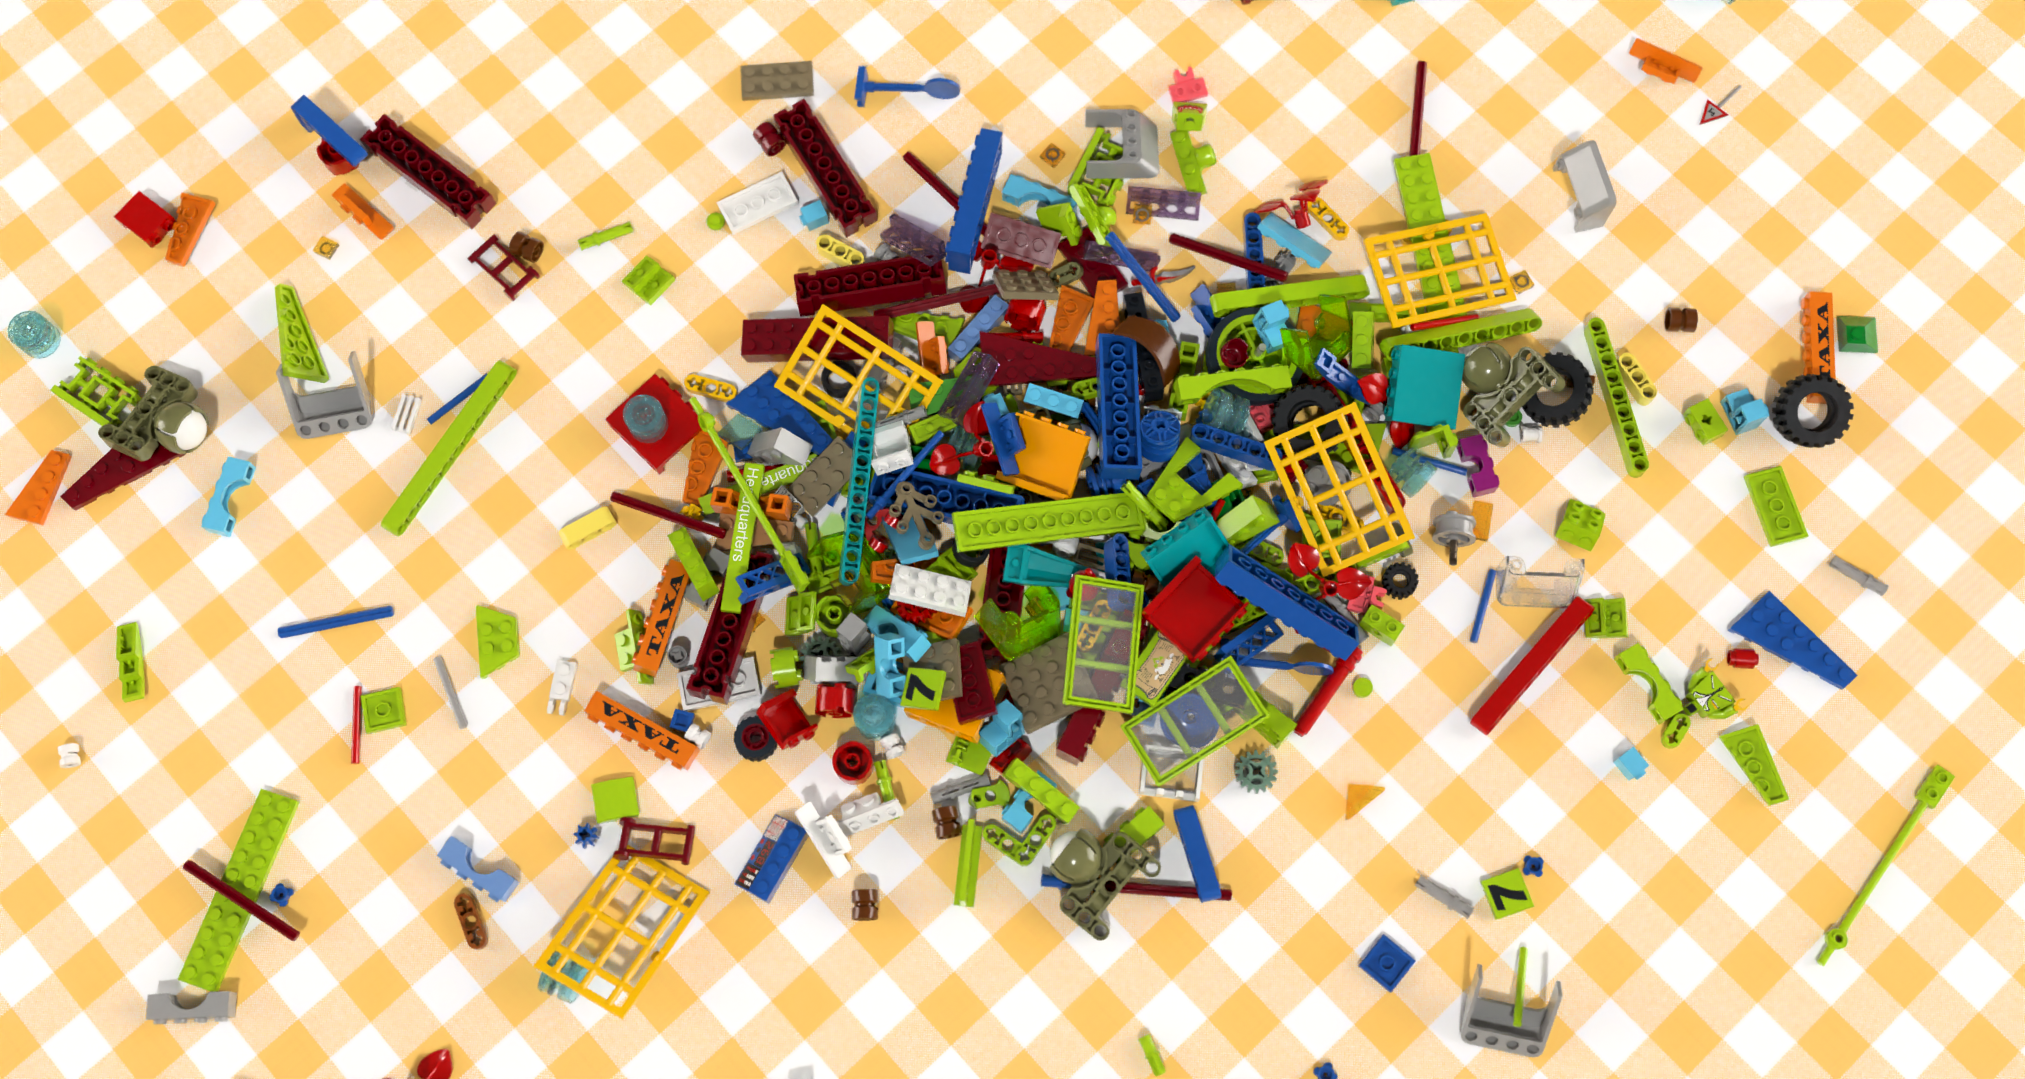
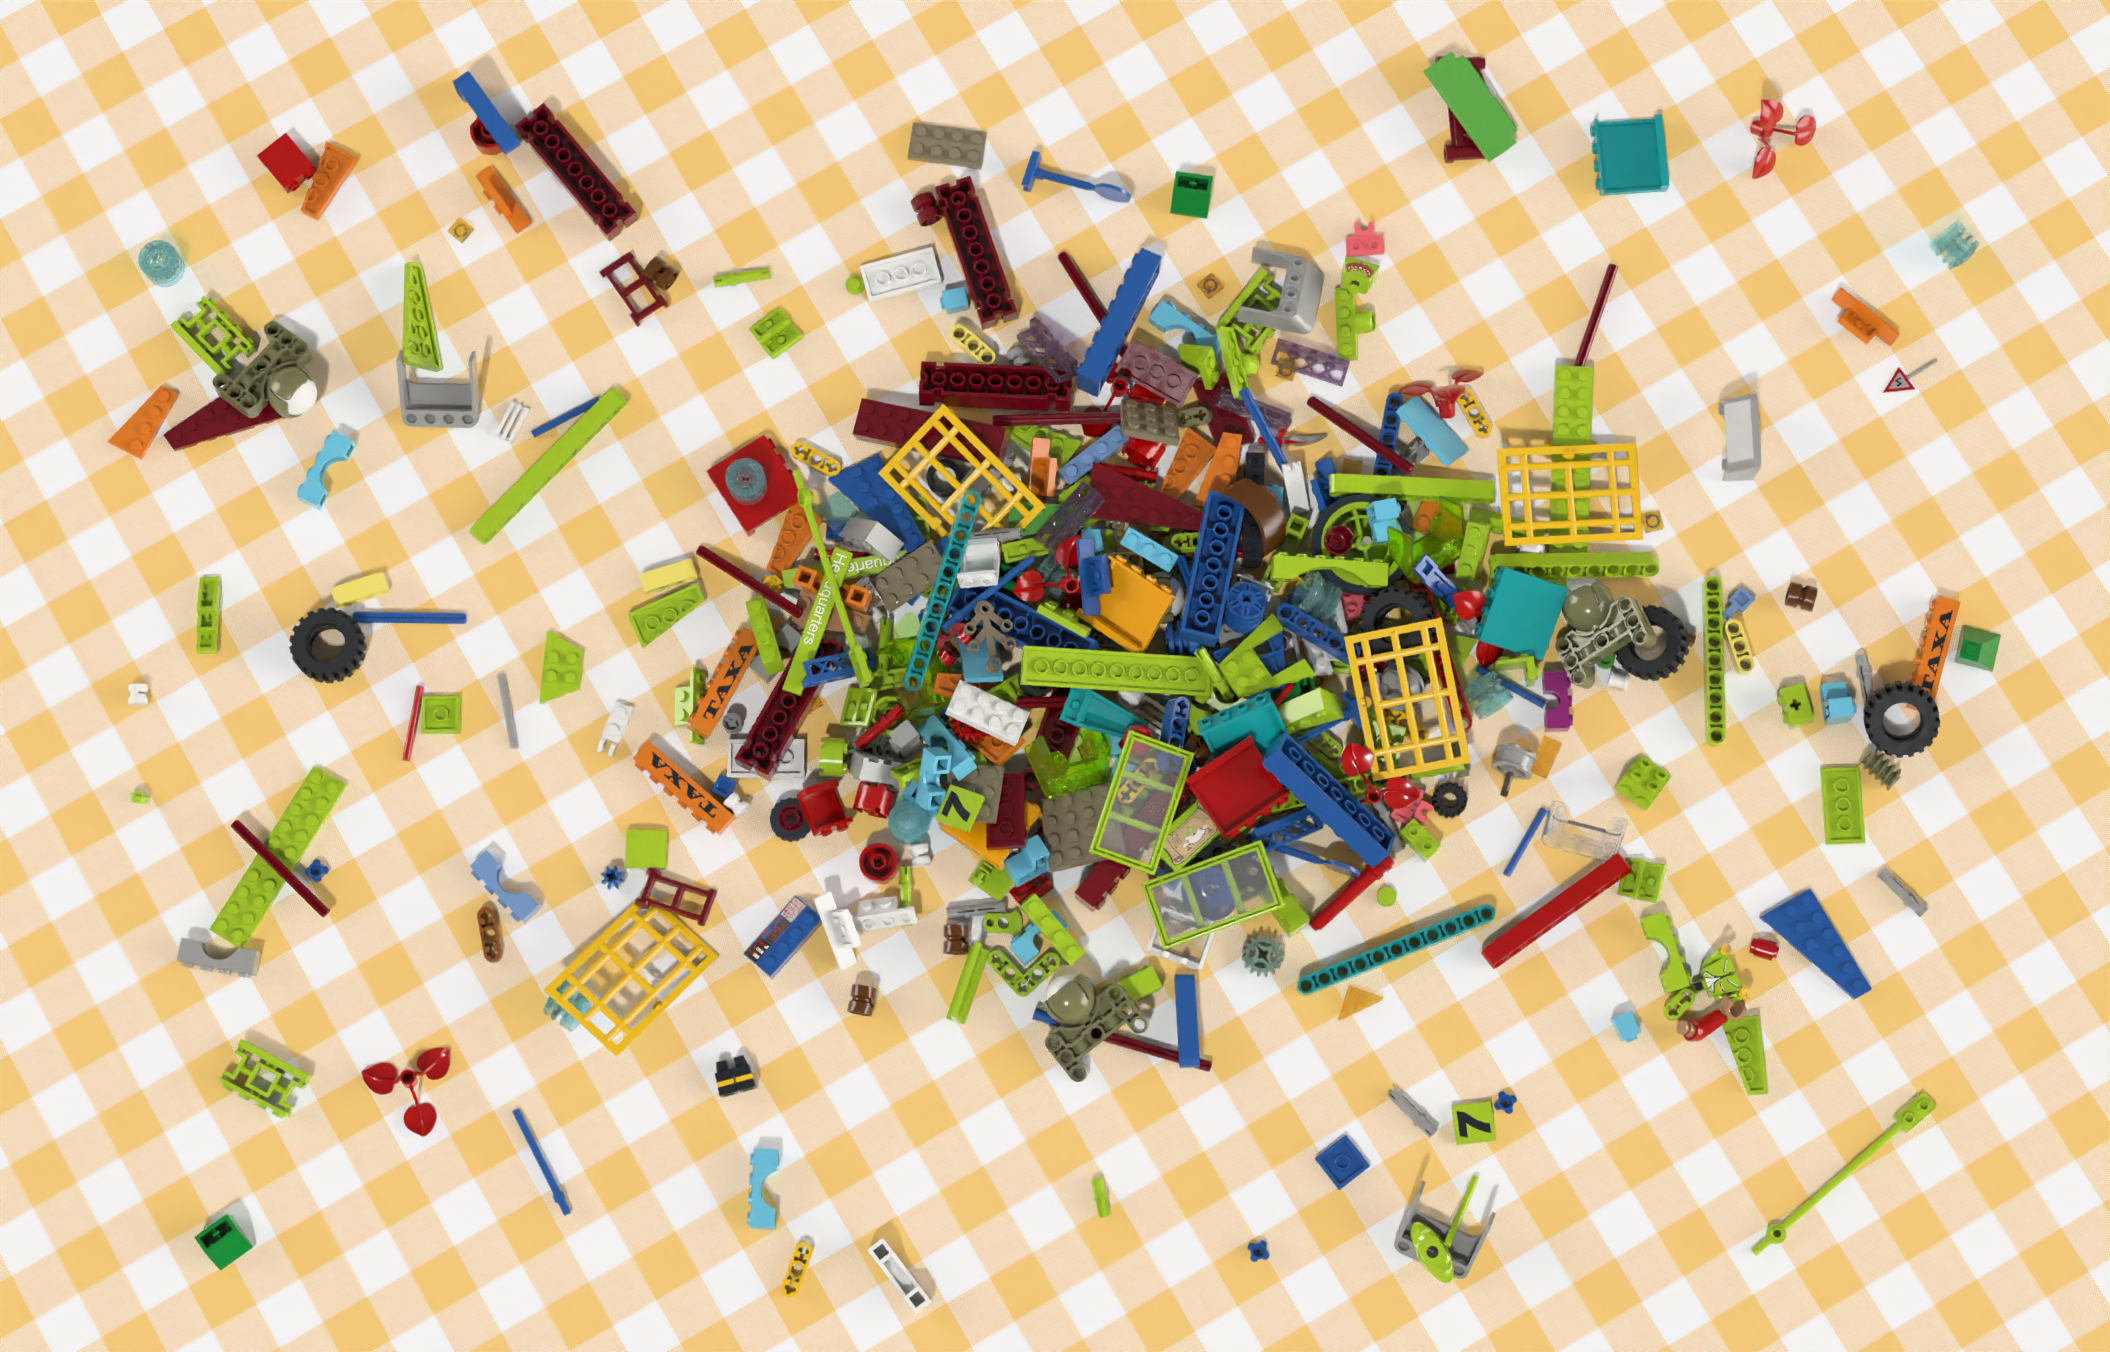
camera: 15 degrees right, 5 degrees up
(84, 859) = (139, 797): none -> lime plate
(235, 653) = (314, 625): none -> black tyre
(280, 605) = (360, 590): none -> light yellow beam
(586, 567) = (659, 616): none -> lime wing
(758, 1009) = (742, 1073): none -> black hips
(825, 627) = (880, 726): none -> red pin
(980, 569) = (1041, 702): none -> dark red axle
(1016, 76) = (1191, 194): none -> green slope
(1177, 318) = (1295, 487): none -> white hinge
(1394, 733) = (1403, 943): none -> teal beam
(1442, 322) = (1558, 549): red bar -> none
(1491, 1024) = (1440, 1266): none -> lime piece
(1624, 337) = (1739, 602): none -> medium blue plate
(1707, 746) = (1699, 1029): none -> piece
(1754, 368) = (1864, 676): none -> light grey pin
(1804, 462) = (1881, 769): none -> olive piece

